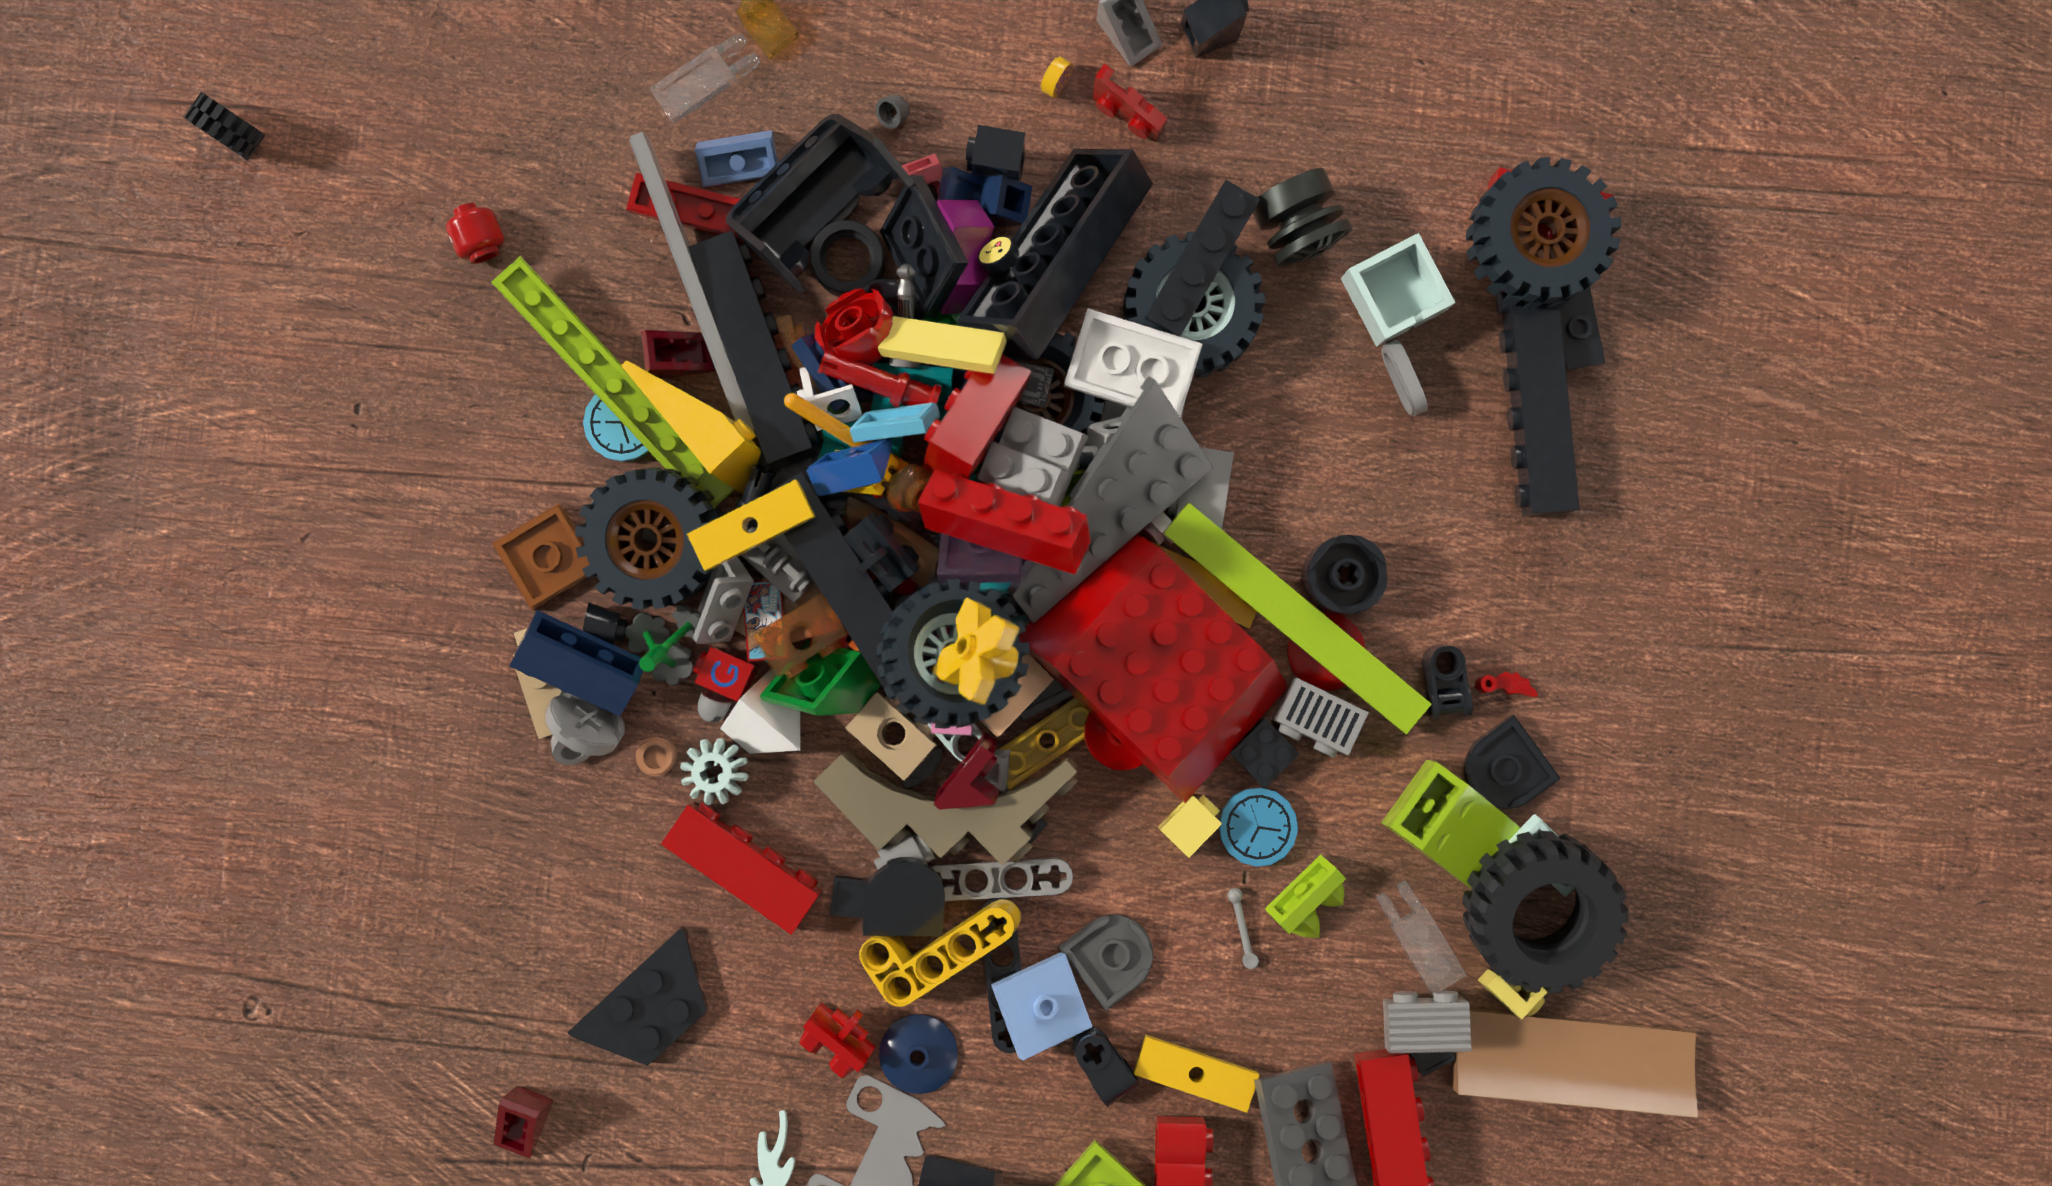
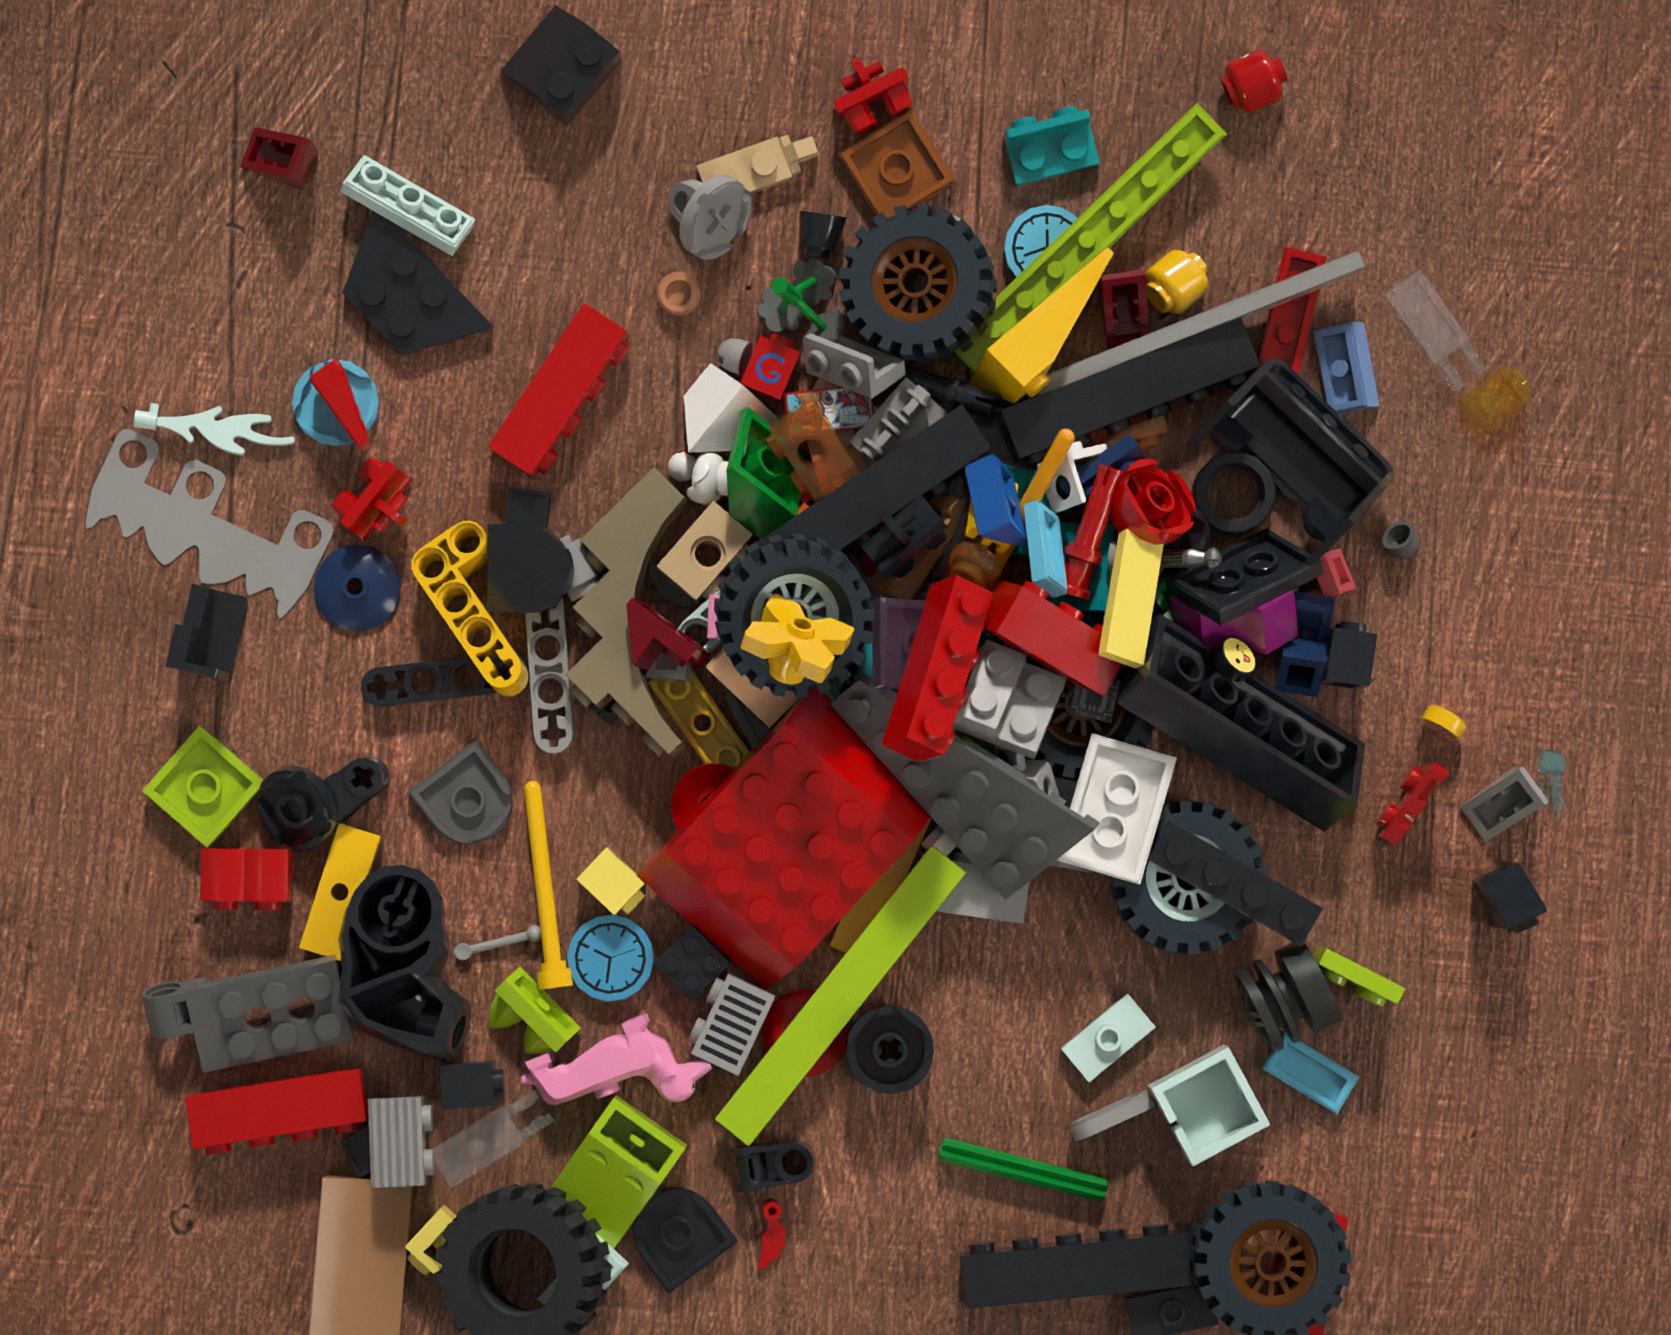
camera: 85 degrees right, 0 degrees up
(442, 859) = (562, 64): none -> black slope
(485, 592) = (890, 88): none -> red hips
(529, 417) = (1050, 146): none -> teal bracket
(568, 1004) = (407, 205): none -> light aqua tile
(578, 663) = (779, 209): dark blue brick -> none
(655, 305) = (1176, 281): none -> yellow head
(703, 763) = (671, 346): light aqua gear -> none
(729, 534) = (920, 372): yellow tile -> none
(739, 1073) = (337, 393): none -> red slope
(749, 1072) = (317, 418): none -> medium azure tile
(820, 733) = (706, 472): none -> white animal
(1041, 1006) = (412, 721): light blue plate -> none
(1120, 1113) = (296, 808): none -> black tile
(1264, 1027) = (393, 962): none -> black piece
(1269, 879) = (553, 970): none -> yellow piece
(1289, 148) = (1369, 984): none -> lime plate
(1333, 381) = (1108, 1037): none -> light aqua plate
(1352, 825) = (615, 1060): none -> bright pink animal
(1369, 200) = (1311, 1073): none -> medium azure tile
(1372, 956) = (471, 1084): none -> black brick
(1450, 459) = (1023, 1169): none -> green axle

